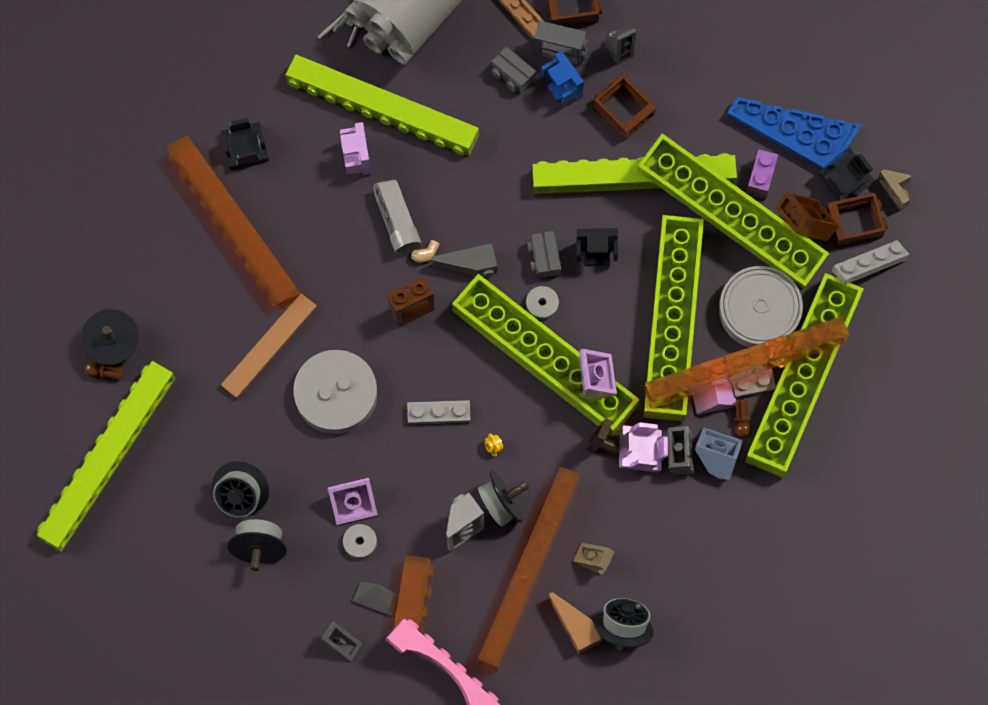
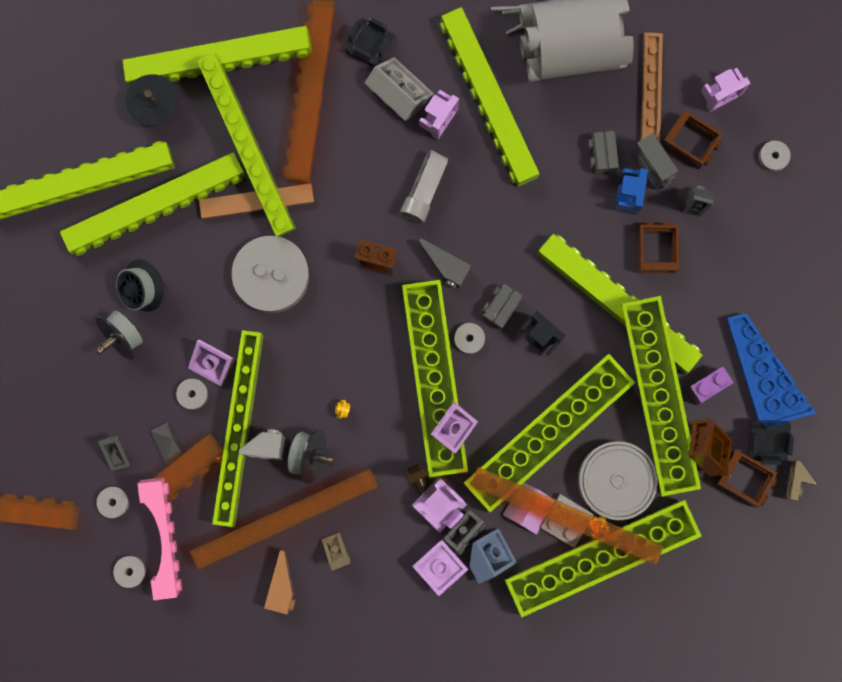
camera: 40 degrees right, 10 degrees up
(93, 369) = (135, 126): reddish brown axle -> none
(134, 255) = (232, 54): none -> lime brick
(185, 421) = (152, 204): none -> lime brick
(223, 304) = (246, 144): none -> lime brick
(302, 160) = (398, 88): none -> light grey slope
(375, 674) = (106, 496): none -> light grey piece
(425, 255) = (421, 232): tan arm -> none
(425, 532) = (238, 428): none -> lime brick
(438, 412) = (327, 352): light grey plate -> none
(624, 623) = (310, 620): black piece -> none
(687, 494) = (440, 567): none -> lavender panel
(742, 429) = (525, 554): reddish brown axle -> none
(870, 262) = (725, 520): light grey plate -> none

